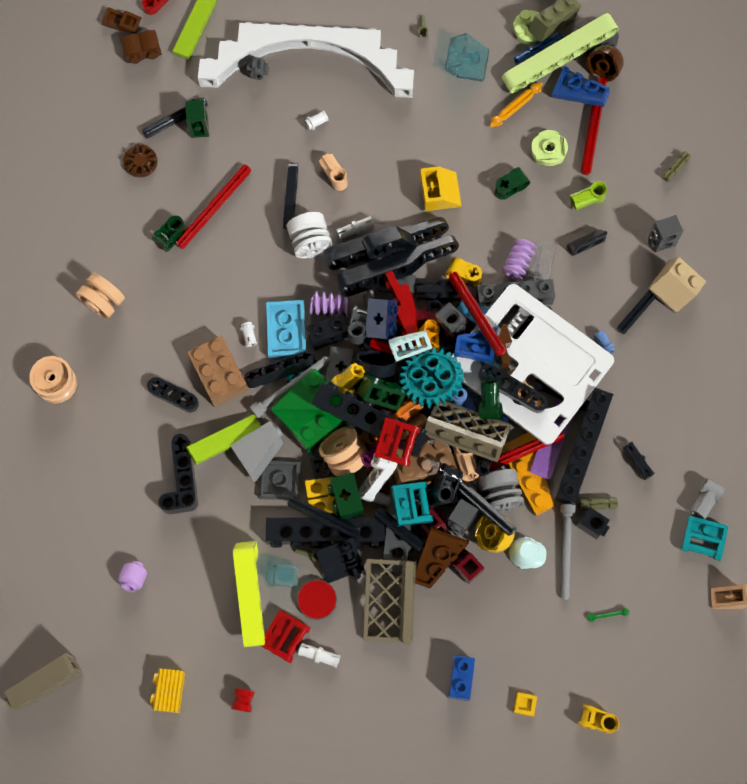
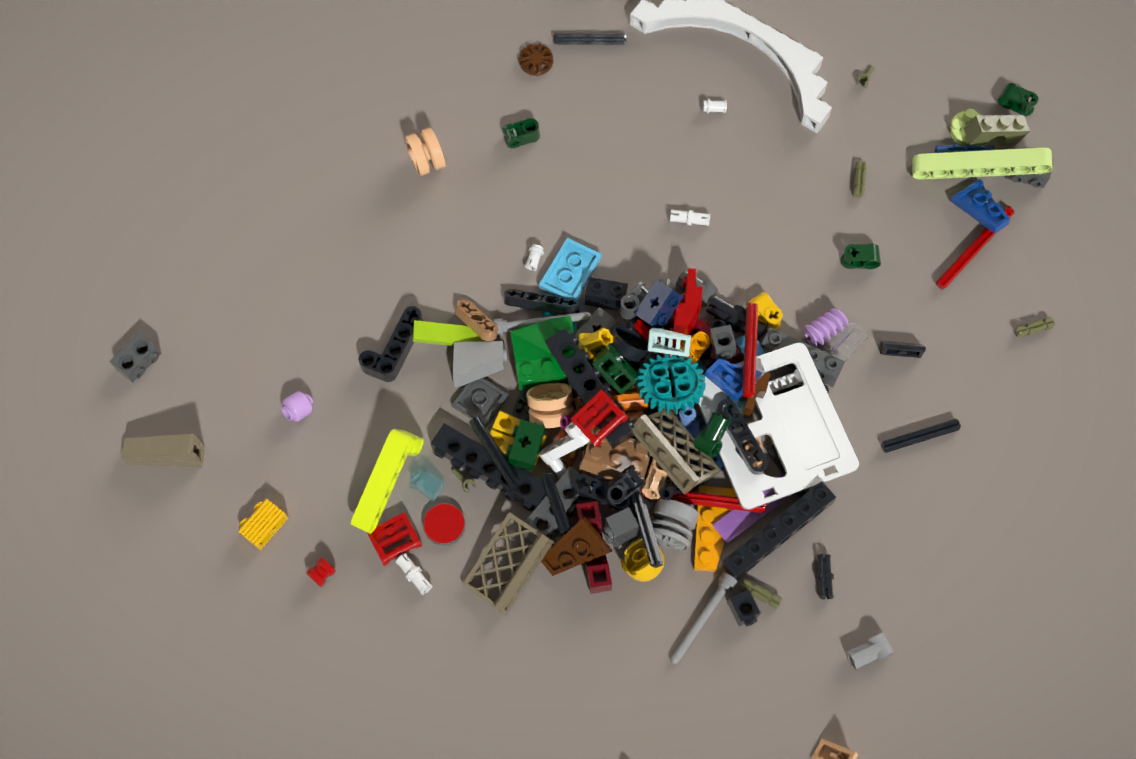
camera: 30 degrees right, 5 degrees down
(53, 379) = (340, 200): light nougat wheel -> none
(187, 395) = (434, 280): black beam -> none
(197, 118) = (607, 47): dark green brick -> none
(213, 206) = (574, 131): red axle -> none
(218, 371) = (485, 272): medium nougat brick -> none
(248, 418) = (470, 313): none -> medium nougat beam
(257, 68) = (690, 34): dark grey gear -> none
(291, 191) = (649, 158): black beam -> none
(309, 234) = (642, 199): white wheel -> none
(329, 304) = (622, 271): lavender piece -> none
(334, 171) = (701, 159): light nougat piece -> none
(340, 560) = (486, 500): black hinge -> none
(384, 243) = (705, 242): black beam -> none
(405, 504) = (574, 482): teal plate -> none
(439, 188) = (790, 224): yellow slope -> none
(461, 678) = (528, 674): blue brick -> none
(467, 58) = (890, 124): clear light blue slope -> none
(470, 118) = (859, 179): none -> olive axle
(515, 104) = (911, 189): light orange wheel -> none
(525, 704) = (573, 736): yellow tile -> none
(527, 553) = (664, 599): light aqua hat -> none
(545, 157) = (911, 252): yellowish green plate -> none
(587, 196) = (928, 307): lime piece -> none
(591, 617) = (688, 695): green hinge -> none
(604, 342) = (860, 448): medium blue pin -> none
(605, 62) = (1022, 194): reddish brown cylinder -> none
(665, 233) = (982, 380): dark grey brick -> none
(676, 284) = (965, 434): tan slope -> none
(705, 531) = (851, 683): teal plate -> none

